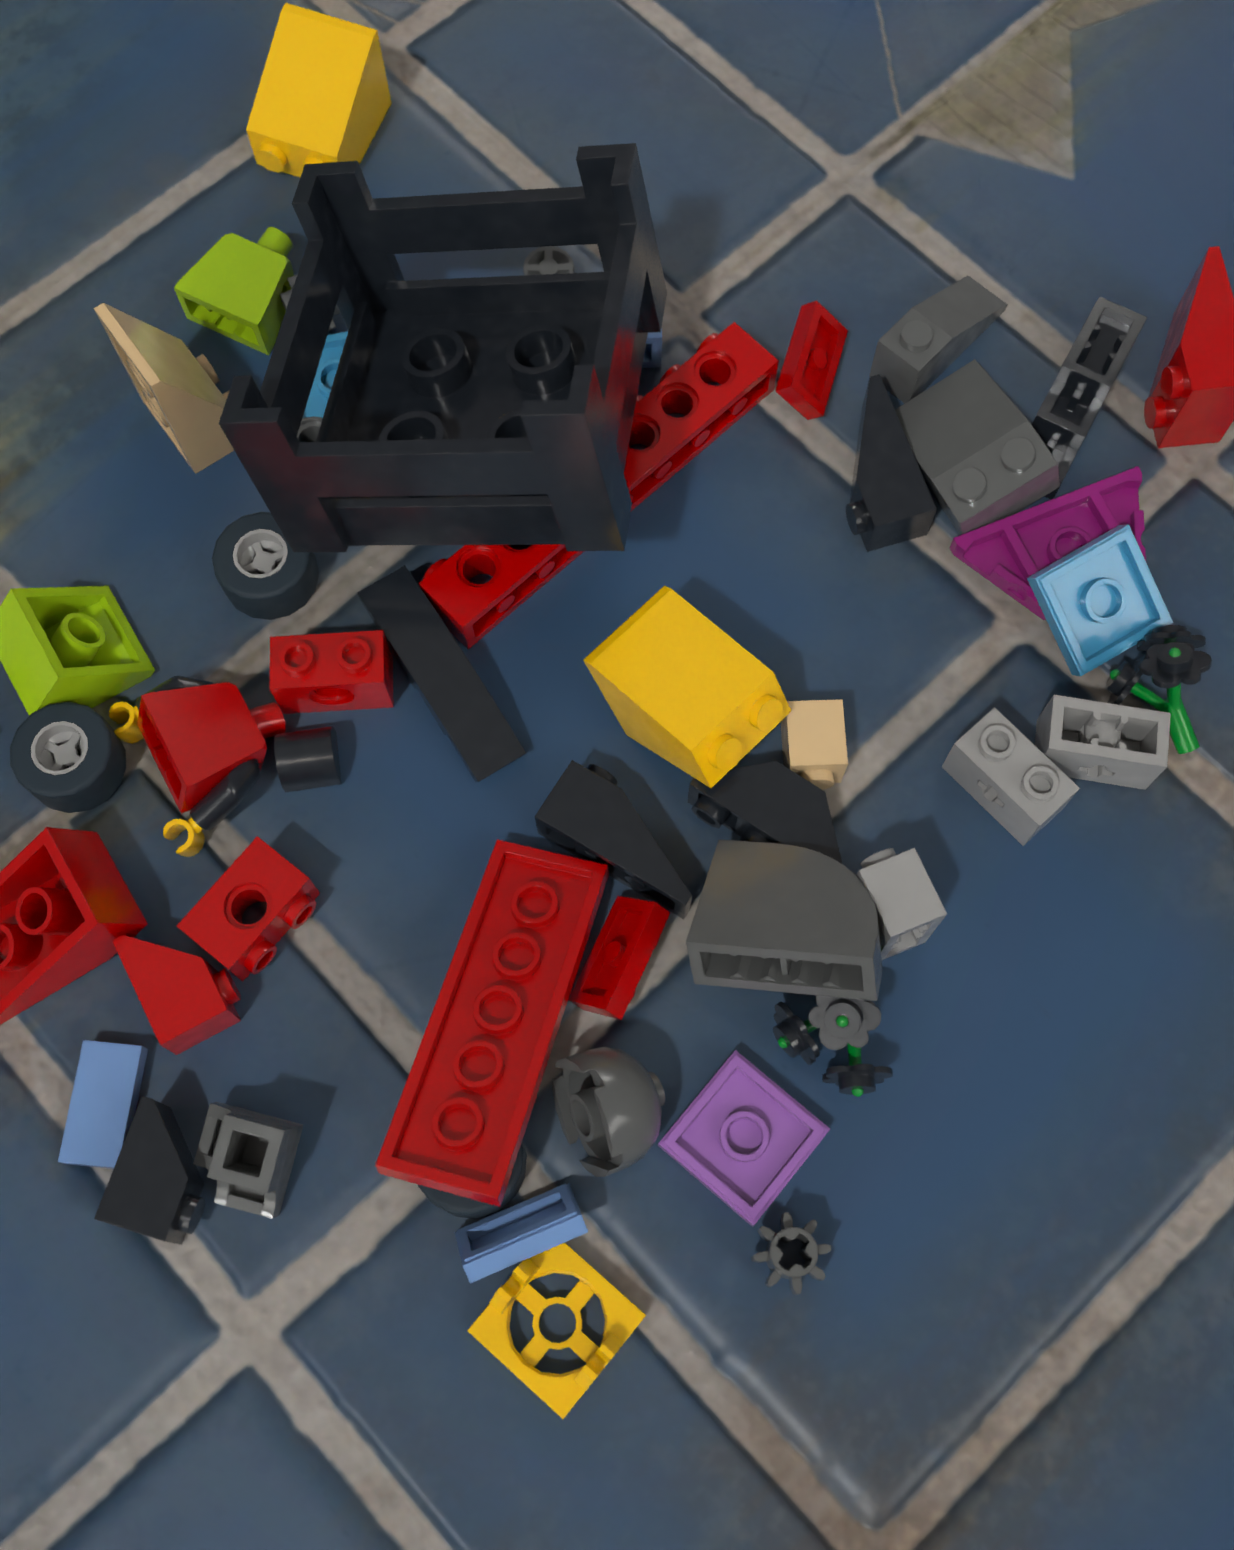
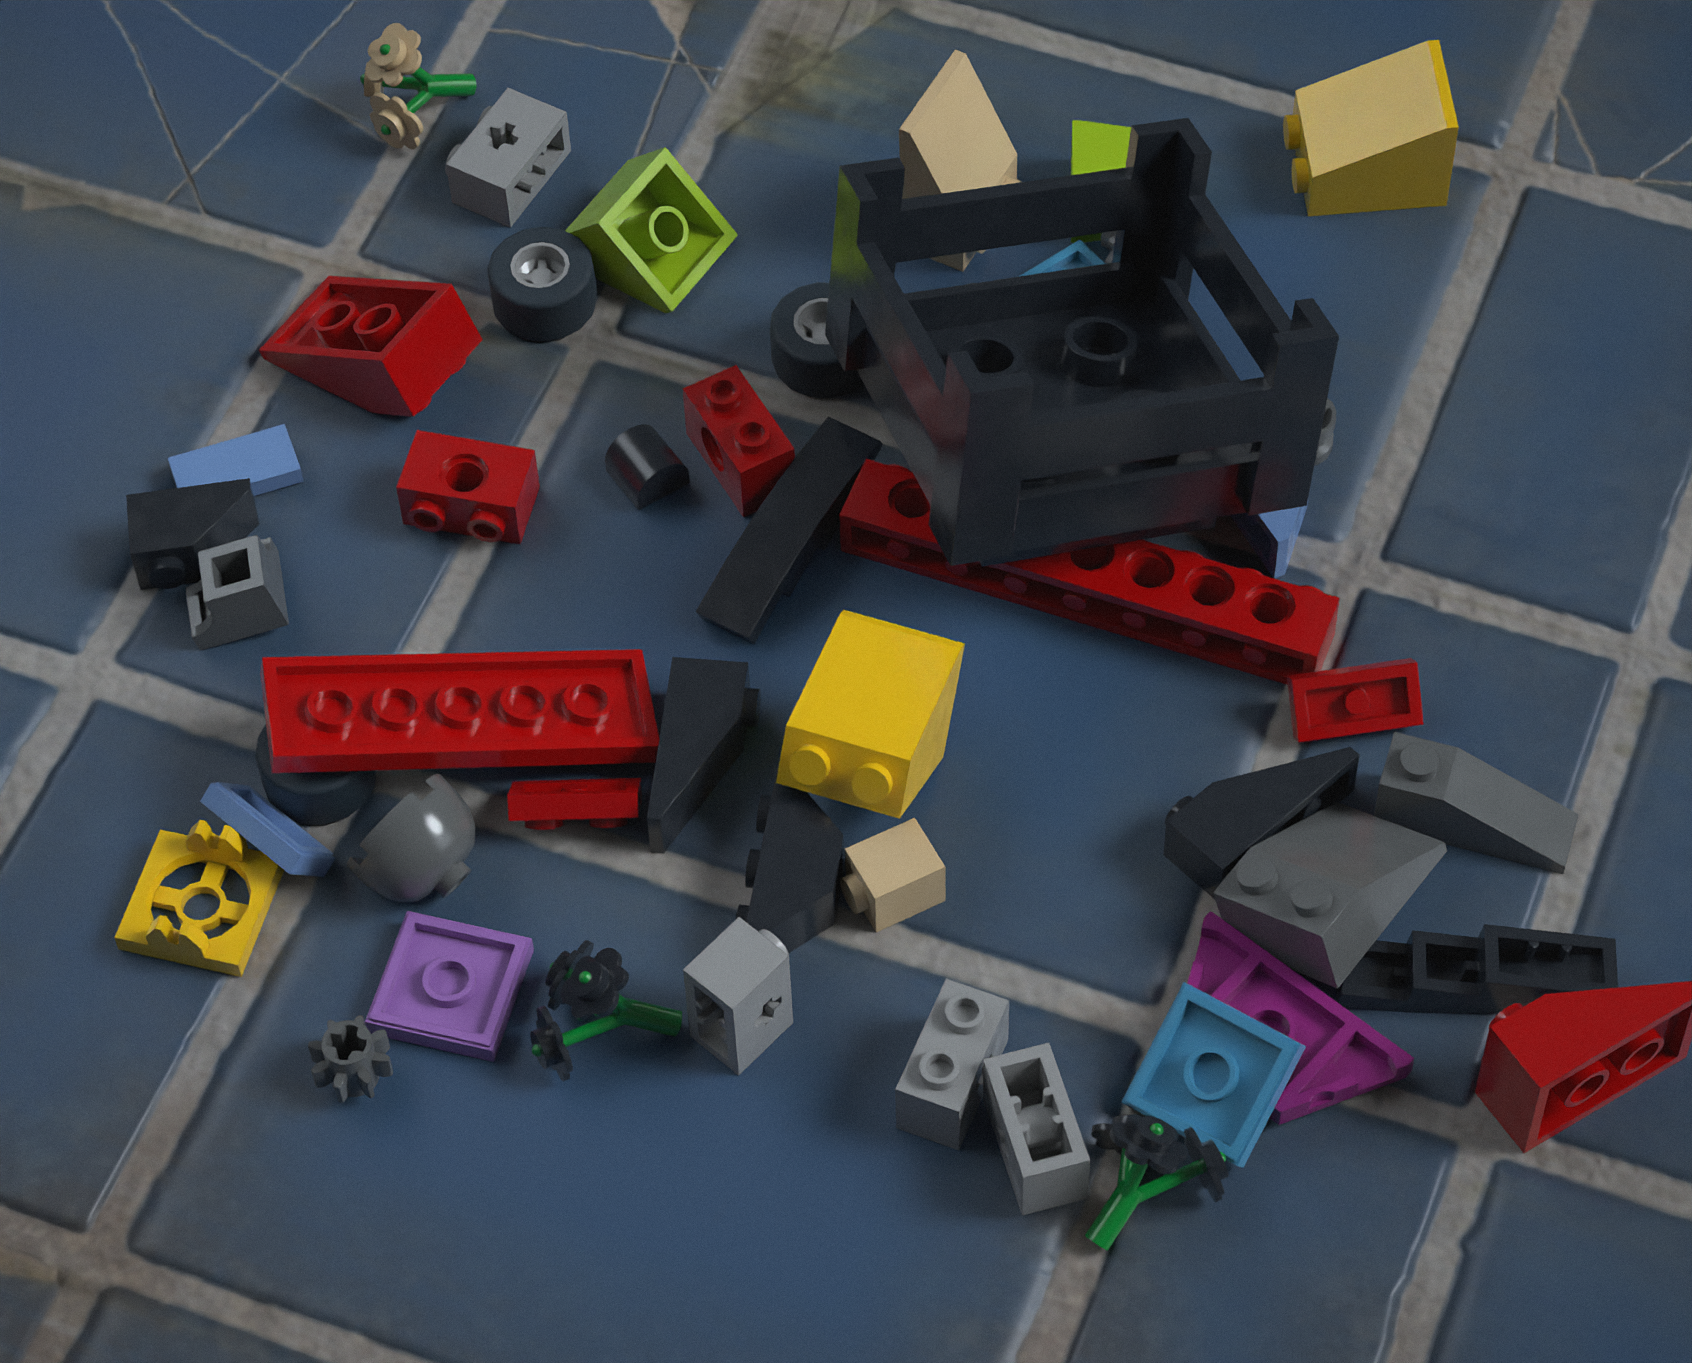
camera: 65 degrees right, 15 degrees down
(179, 993) = (358, 471): red slope -> none
(203, 746) = (602, 377): red torso -> none
(785, 924) = (658, 889): dark grey brick -> none

